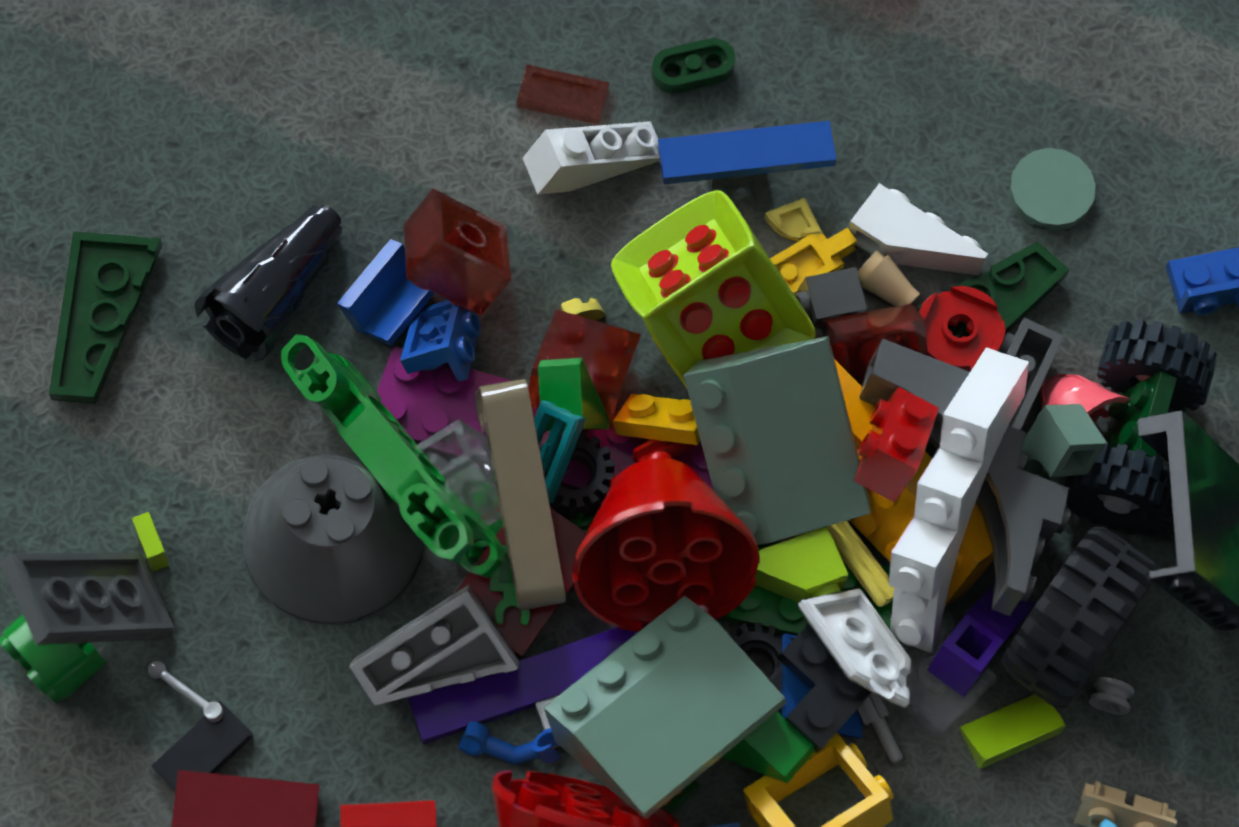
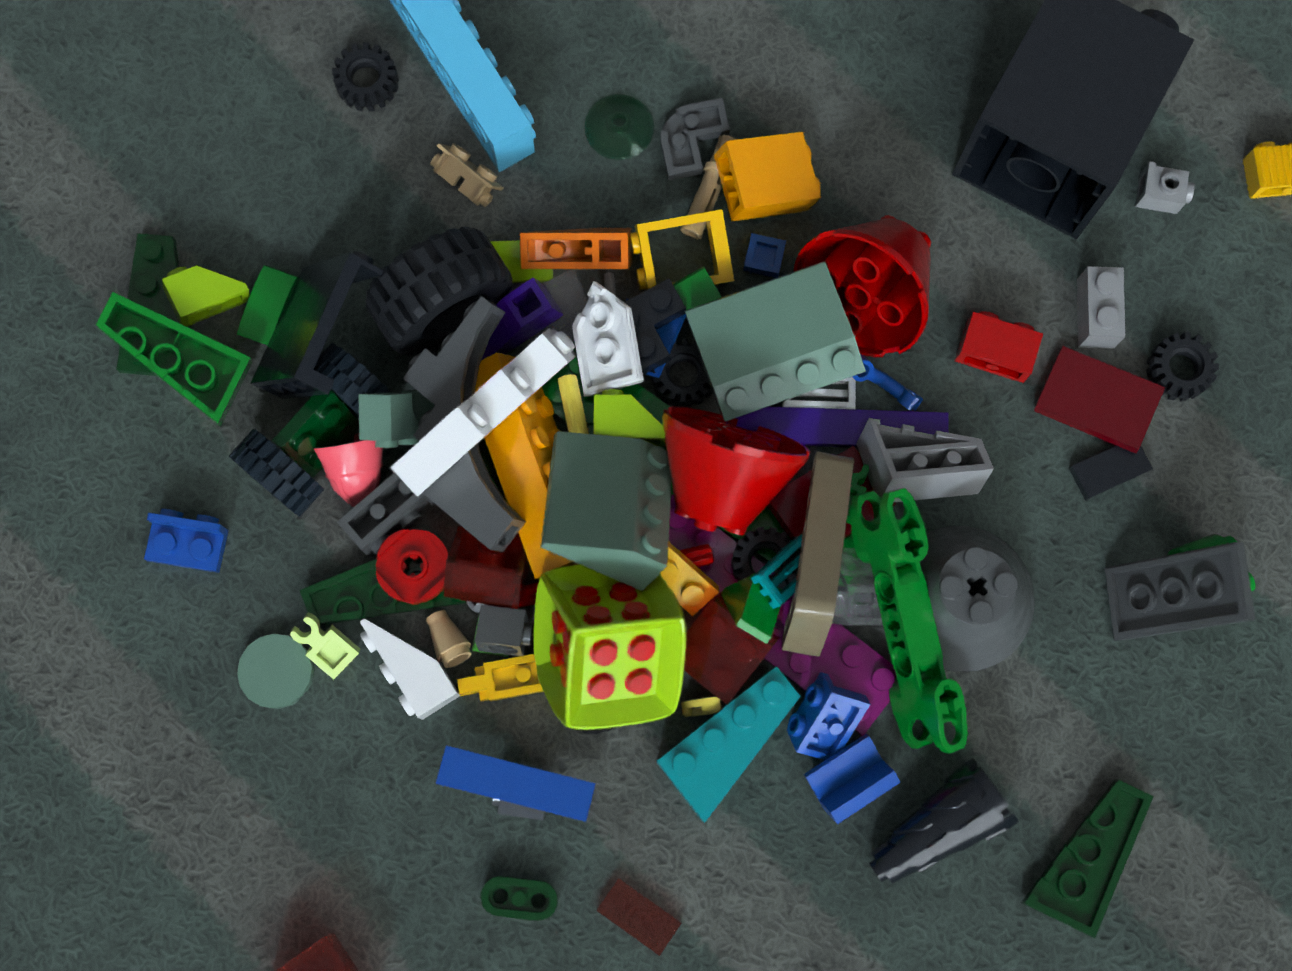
camera: 155 degrees left, 10 degrees up
(150, 541) = (1106, 640): lime tile -> none
(212, 710) = (1098, 489): light grey hinge -> none
(456, 252) = (791, 782): clear red brick -> none
(547, 267) = (722, 748): none -> teal wedge
(586, 155) = (637, 844): white slope -> none
(793, 220) = (495, 723): light yellow tile -> none
(895, 443) = (520, 456): red brick -> none
(943, 759) = (576, 249): none -> orange slope
(1009, 223) = (328, 649): none -> yellowish green plate

